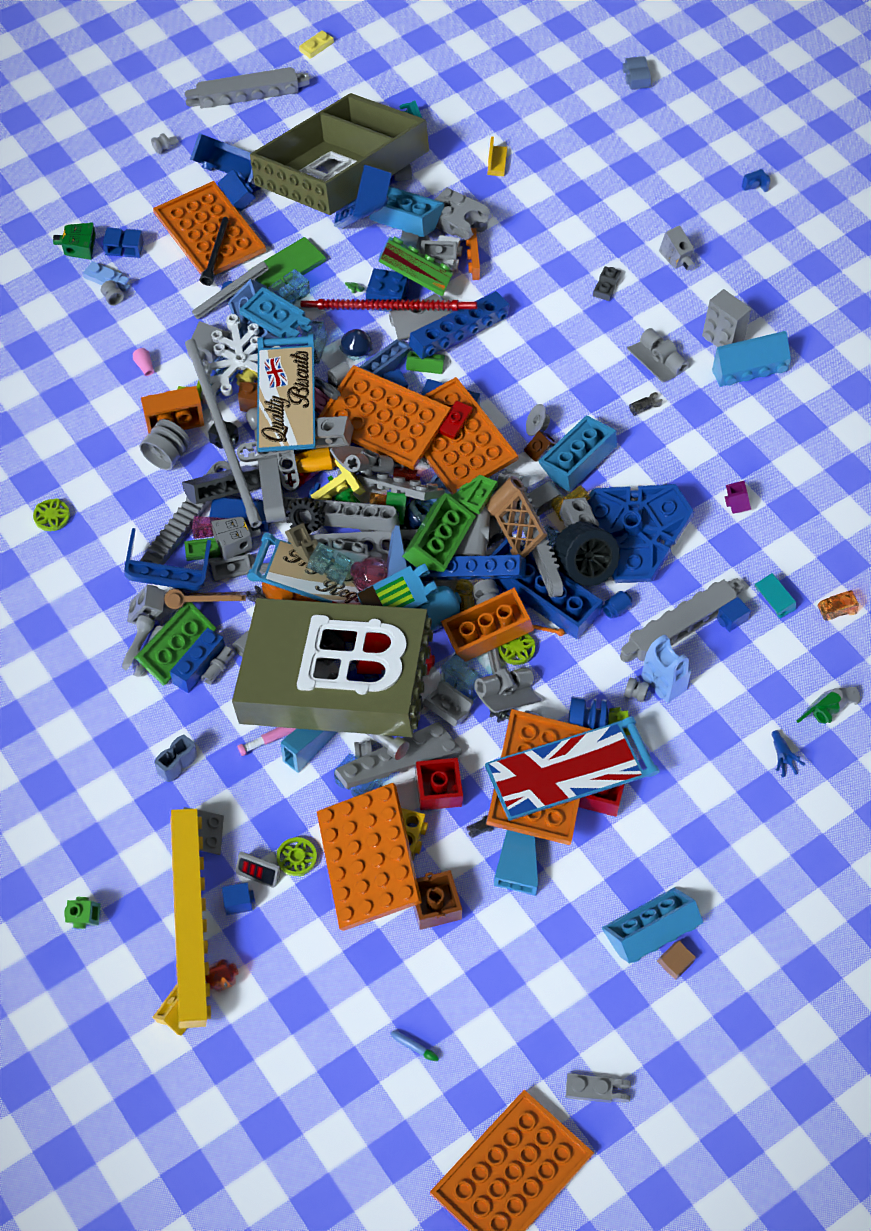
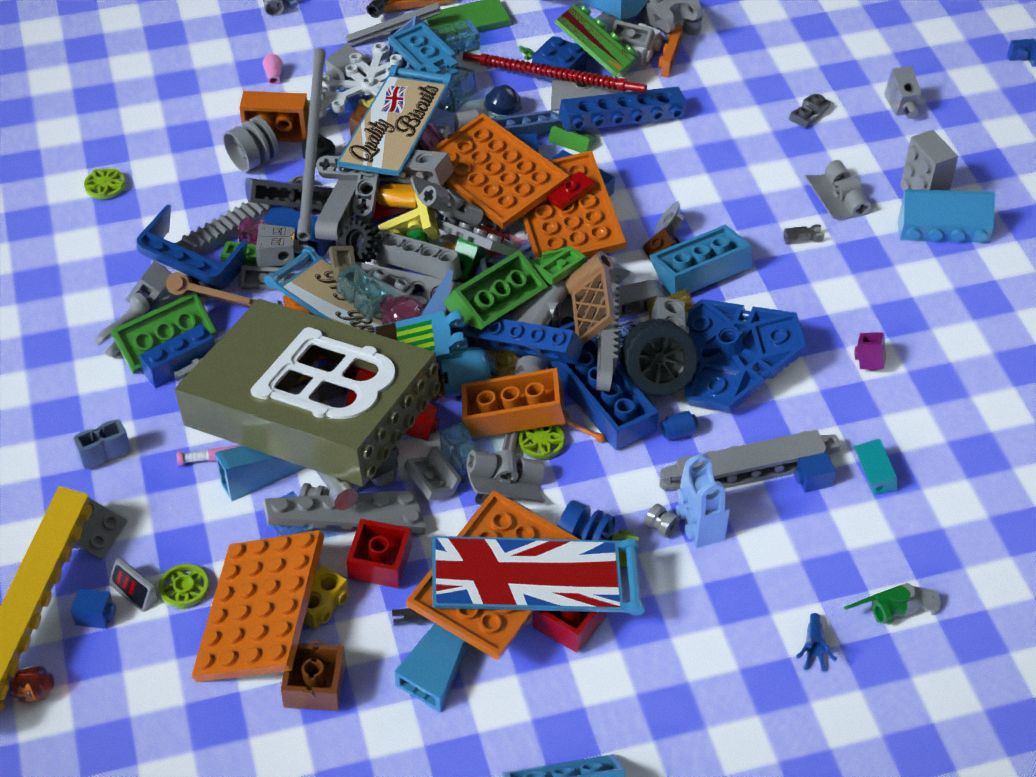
camera: 20 degrees right, 10 degrees down
(838, 605) = (951, 497): clear orange leg -> none

